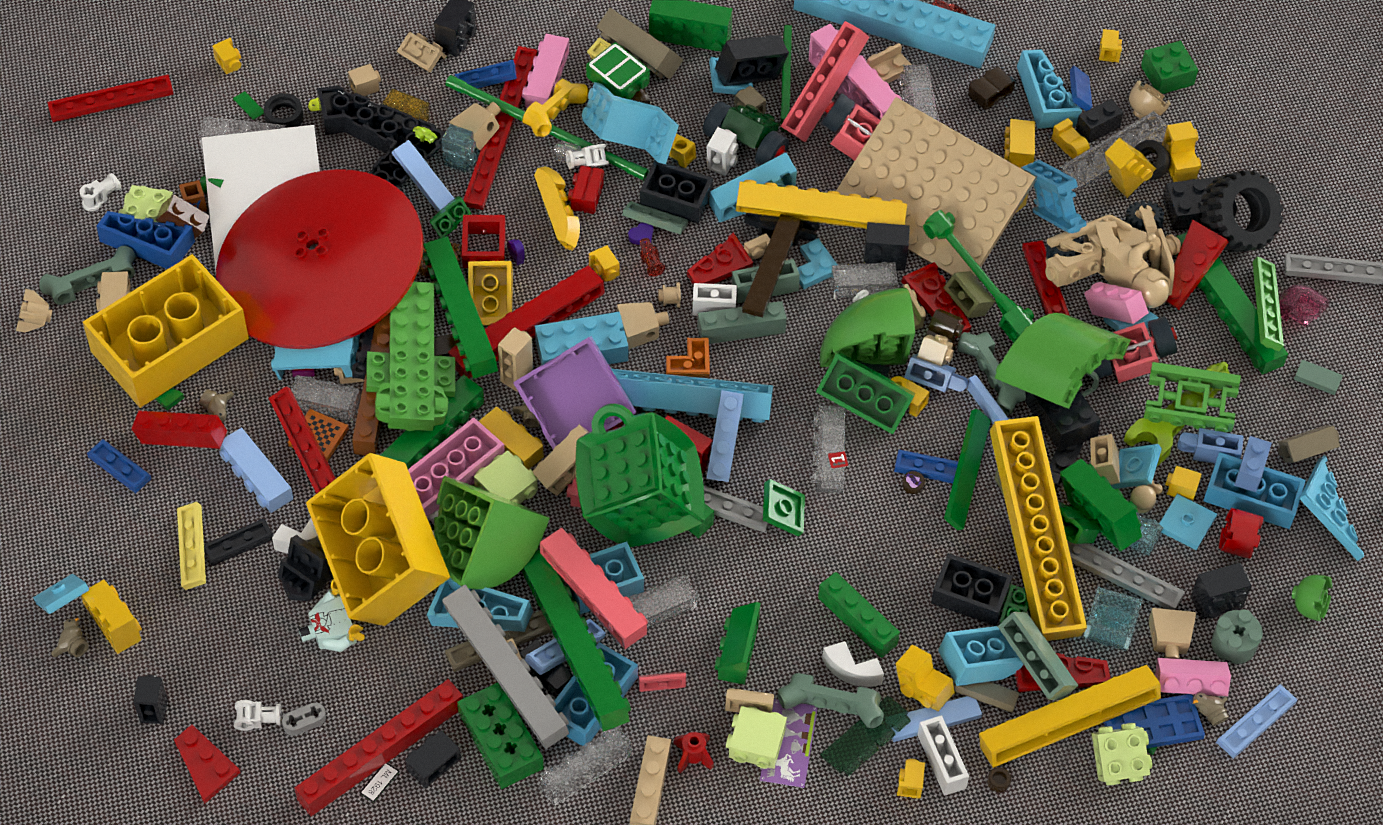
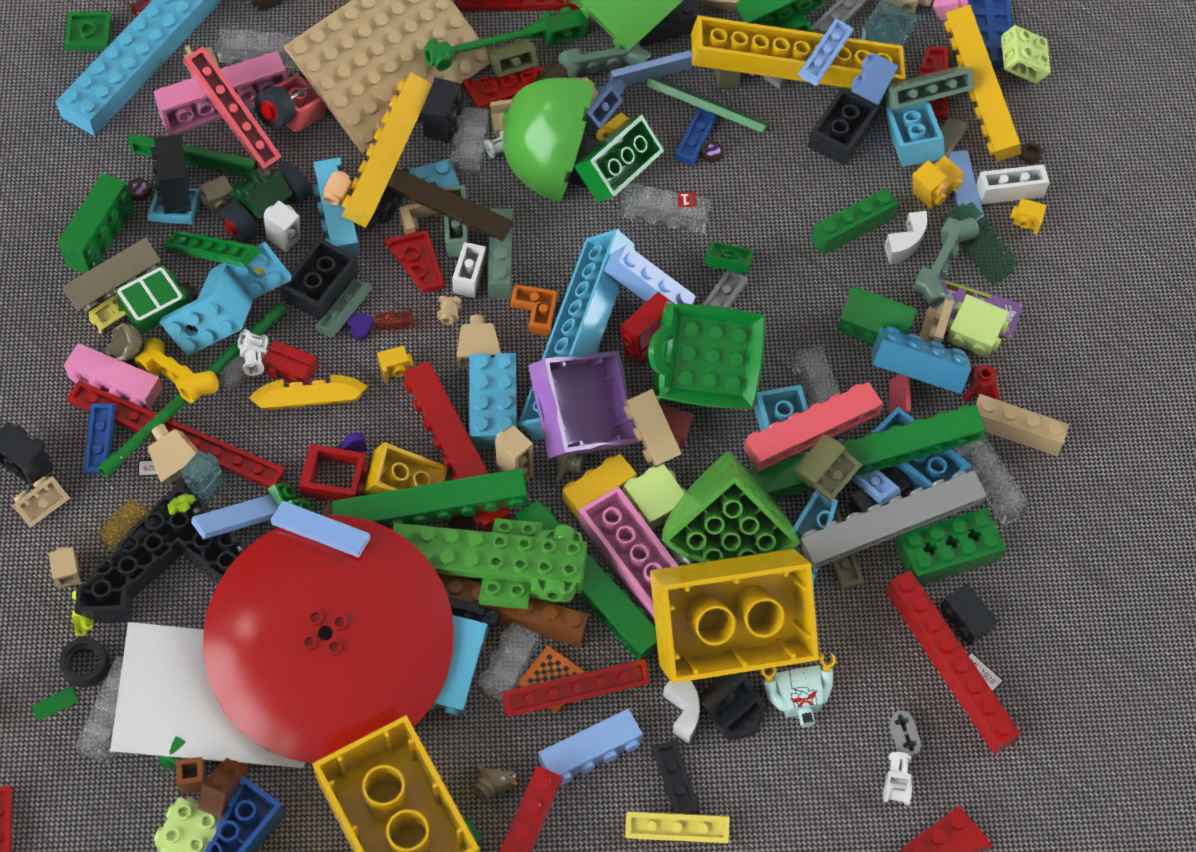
camera: 80 degrees left, 5 degrees up
(402, 218) = (320, 529): none -> light blue tile
(544, 599) = (827, 467): none -> olive brick
(574, 69) = (125, 343): none -> dark tan hair
(676, 100) = (211, 248): none -> green tile
(695, 680) = (921, 359): none -> dark azure brick
(761, 173) = (336, 188): none -> light nougat brick
(1025, 596) = (873, 78): none -> medium blue brick
(1041, 545) = (825, 52): none -> light blue tile

